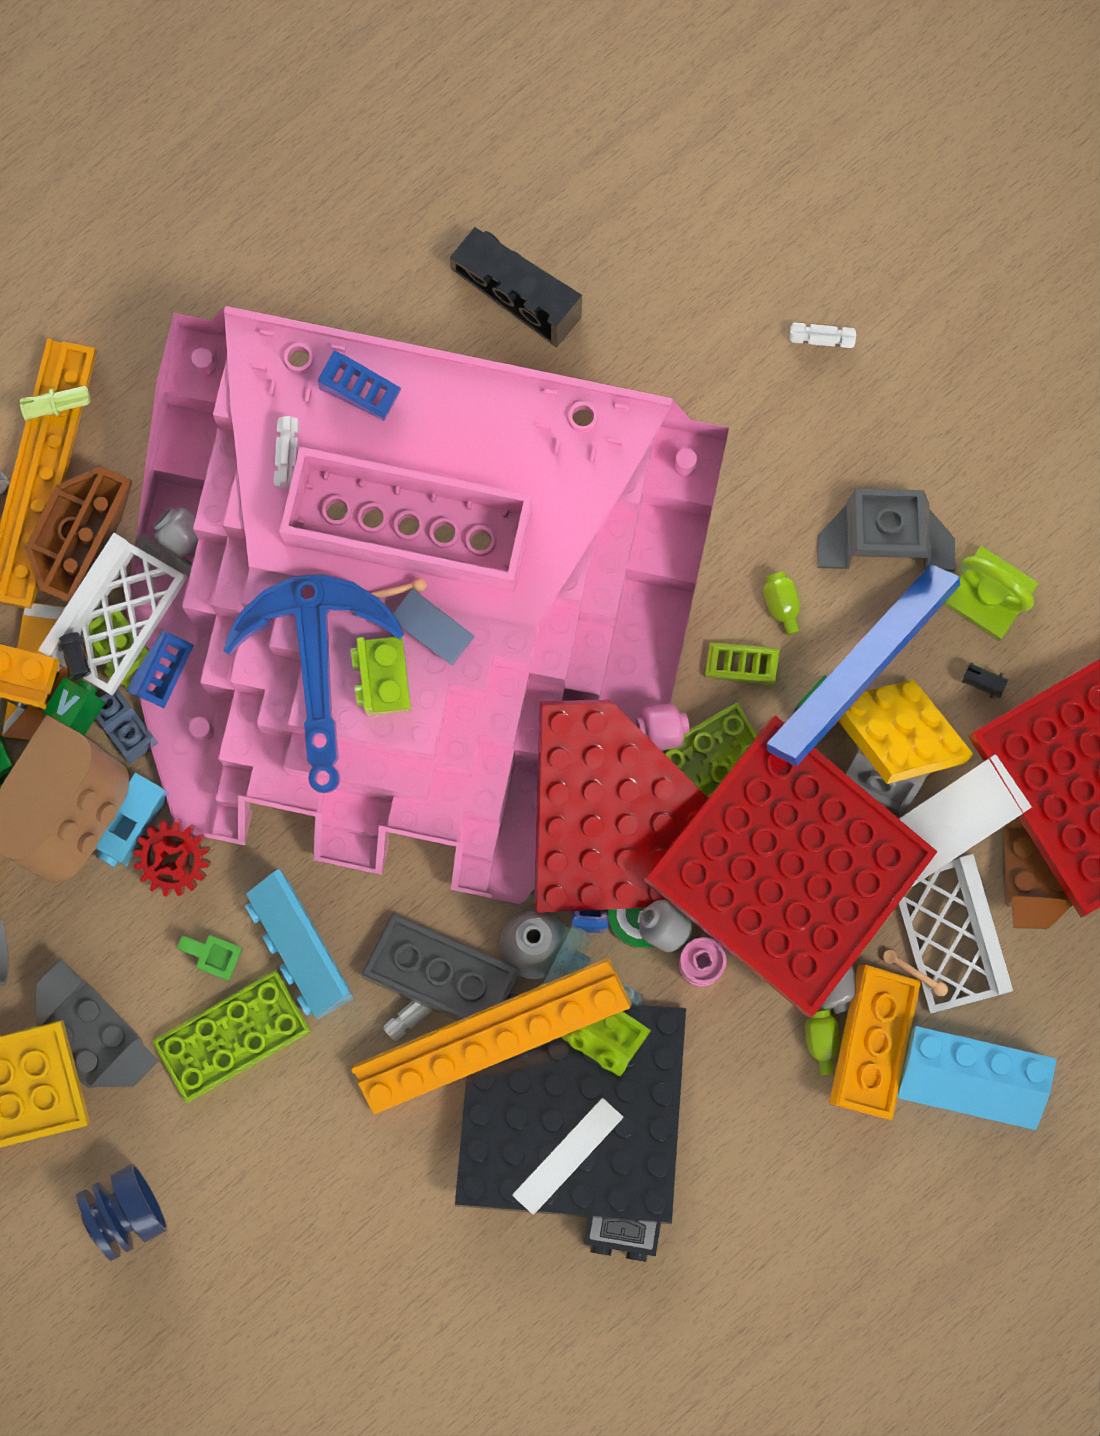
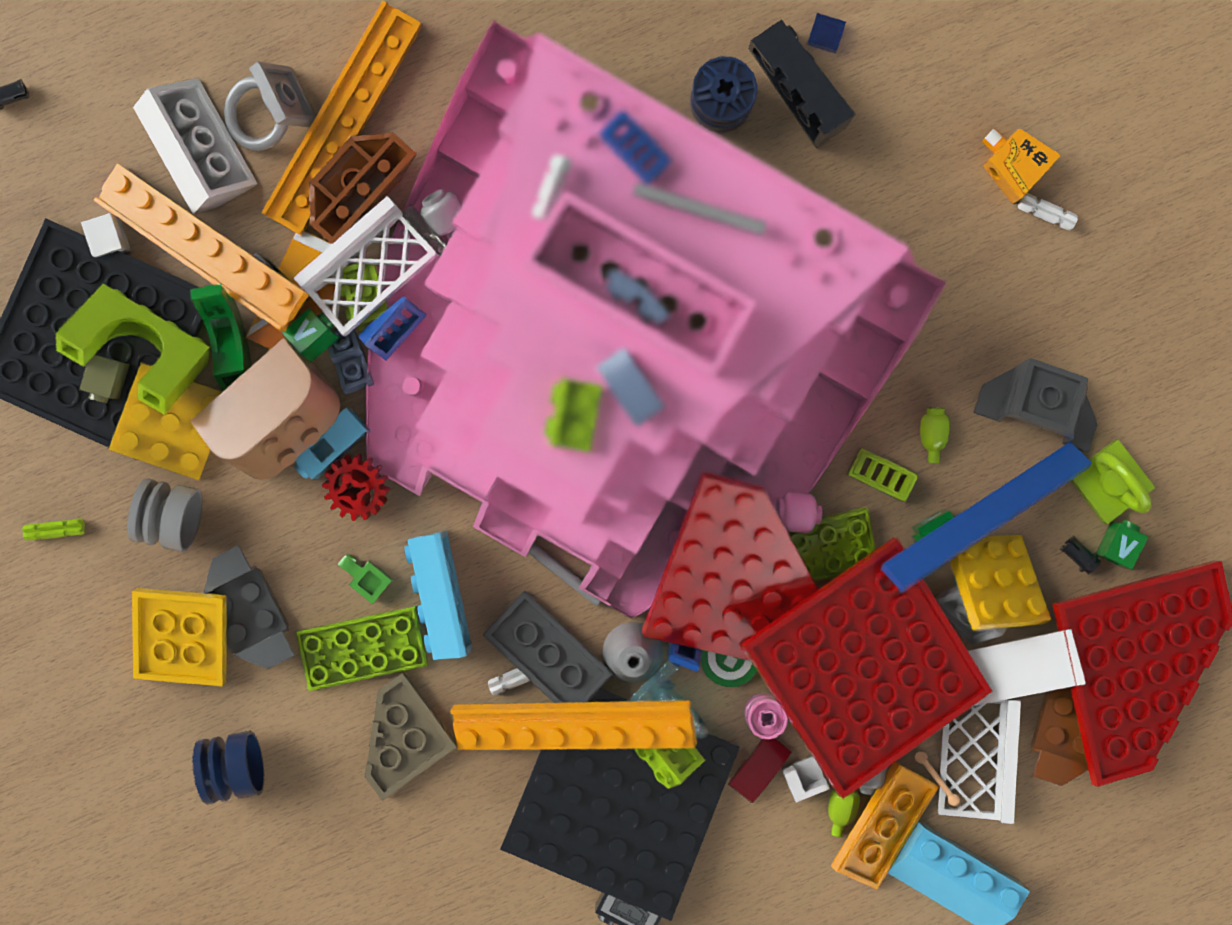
camera: 20 degrees right, 10 degrees up
(54, 402) = (371, 61): yellowish green axle -> none
(74, 655) = (322, 293): black pin -> none
(308, 1120) = (403, 737): none -> dark tan plate
(313, 641) = (522, 371): blue piece -> none
(398, 528) = (629, 290): none -> sand blue slope
(418, 585) = (576, 339): light nougat hinge -> none
(428, 881) = (561, 571): none -> light grey bar
(437, 426) = (699, 208): none -> light grey bar
(439, 296) = (716, 110): none -> dark blue wheel
(527, 228) = (826, 33): none -> clear blue tile
(567, 1156) = (604, 841): white sticker -> none
(664, 926) = (743, 679): light grey head -> none
(716, 1025) = (759, 769): none -> dark red slope
(769, 1020) = (805, 778): none -> white panel
(771, 294) = (1017, 162): none -> light orange torso
(1024, 654) = (1122, 544): none -> green brick

